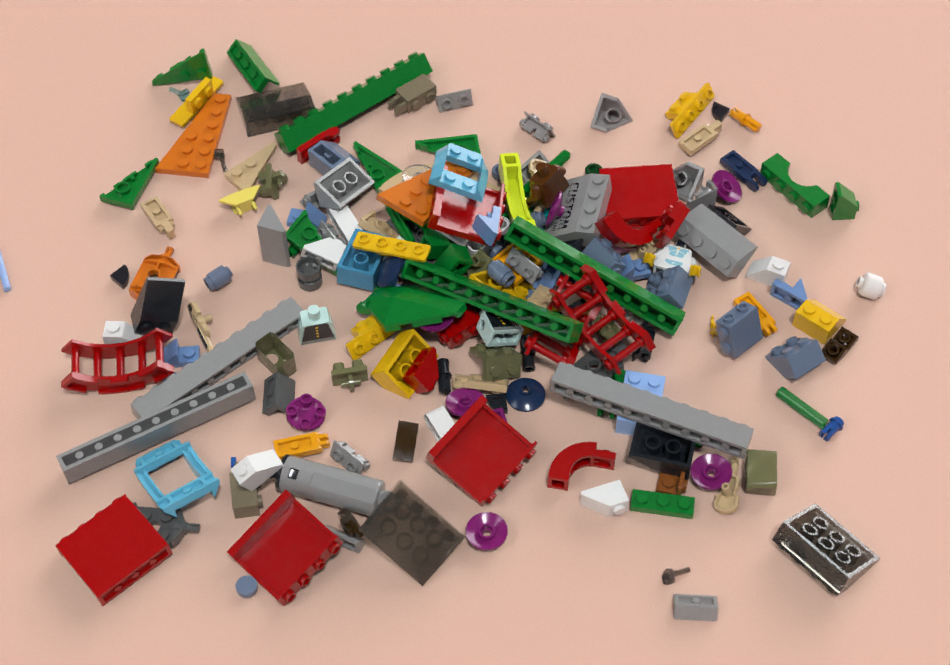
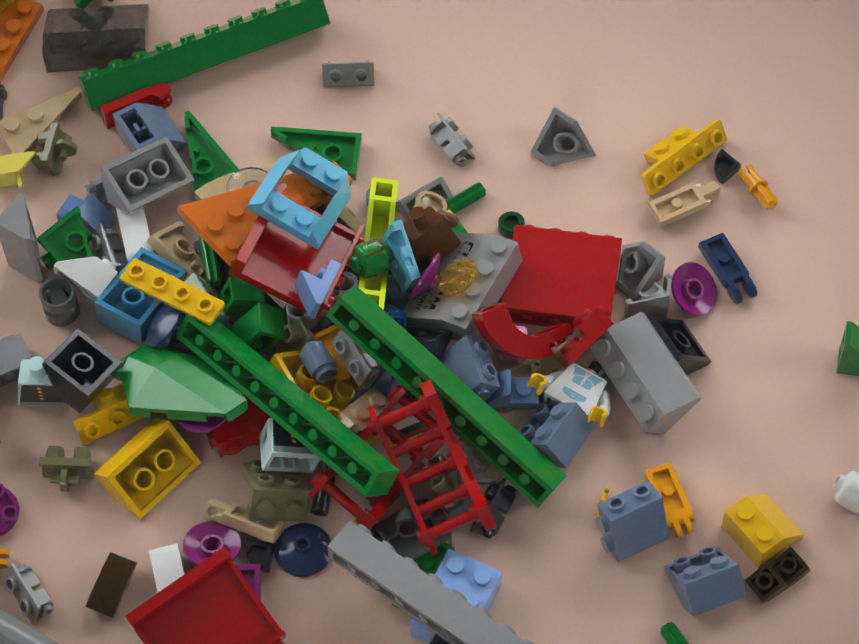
camera: 15 degrees right, 5 degrees up
(343, 309) = (80, 370): none -> black slope
(413, 95) = (291, 55): dark tan hinge -> none
(423, 371) = (167, 485): red slope -> none
(444, 376) = (196, 497): black axle -> none
(517, 202) = (370, 258): none -> green head
(534, 197) = (403, 261): none -> medium azure wing
(573, 206) = (452, 281): none -> clear yellow gear
(768, 269) = (713, 437): white slope -> none
(791, 296) = (734, 483): medium blue slope -> none
(808, 198) = (810, 334): green arch -> none

